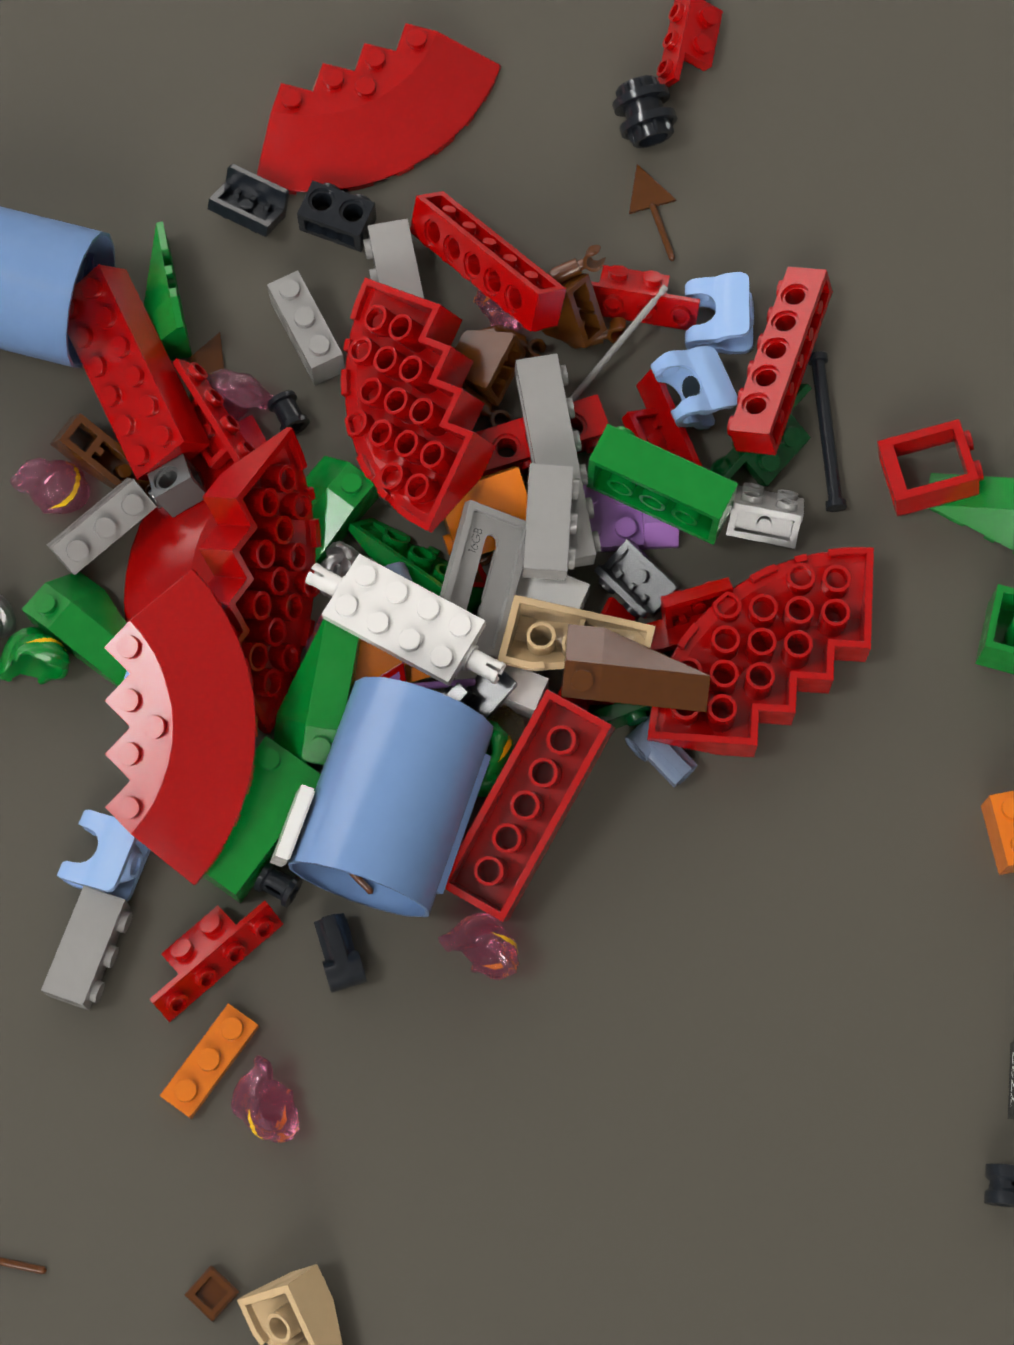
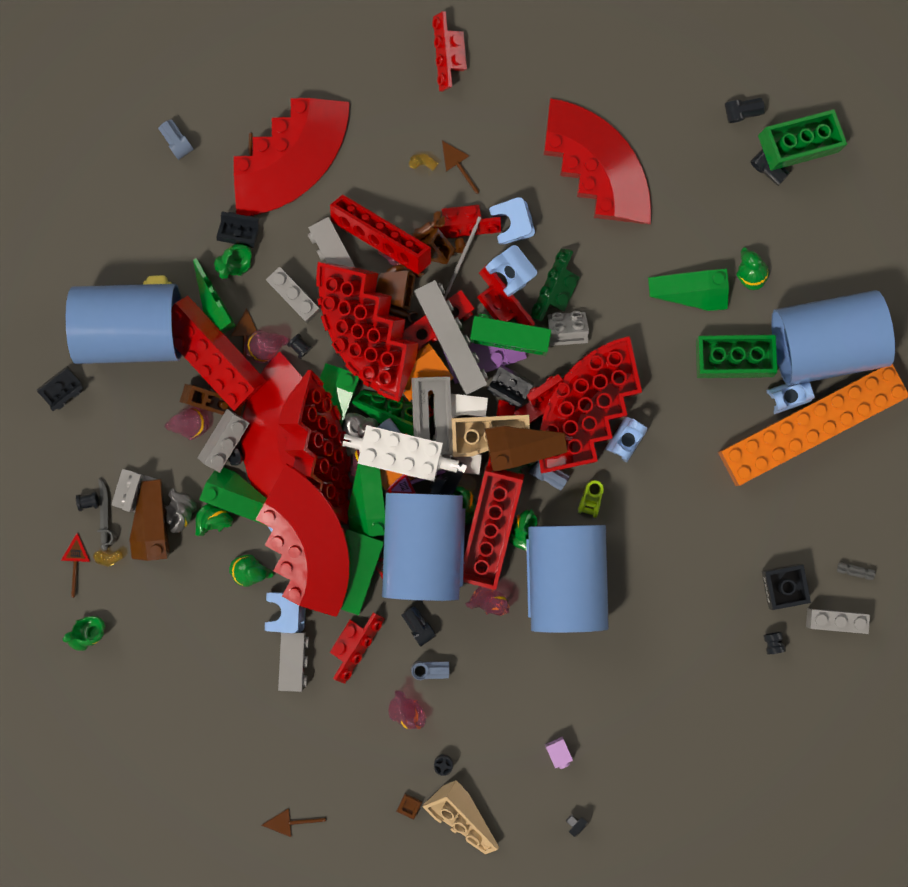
camera: 15 degrees left, 15 degrees up
(66, 764) = (248, 571): none -> green hair
(114, 562) = (236, 456): none -> black piece
(176, 485) = (262, 406): dark grey brick -> none
(197, 46) = (177, 142): none -> sand blue piece
(209, 1061) = (371, 697): orange plate -> none
(219, 425) = (271, 372): red bracket -> none
(226, 246) = (234, 261): none -> green hair
(278, 884) = (376, 600): black bush -> none
(292, 826) = (378, 577): white tile -> none
(297, 1227) = (440, 765): none -> black wheel
(333, 222) = (287, 228): black brick -> none
(340, 1042) = (433, 670): none -> sand blue piece
(531, 1275) = (559, 753): none -> lavender brick
(549, 522) = (459, 377): light grey brick -> none
(586, 835) = (520, 530): none -> green hair
(596, 182) = (422, 159): none -> clear yellow arm
(643, 931) = (567, 578): none -> medium blue piece
(646, 117) = (438, 111): black piece -> none
(723, 821) = (591, 500): none -> lime piece
(780, 361) = (558, 249): red brick -> none
(825, 726) = (626, 438): none -> light blue piece
(835, 501) = (587, 270): black bar -> none
(897, 269) = (600, 160): none -> red brick
(935, 493) = (638, 301): red window -> none

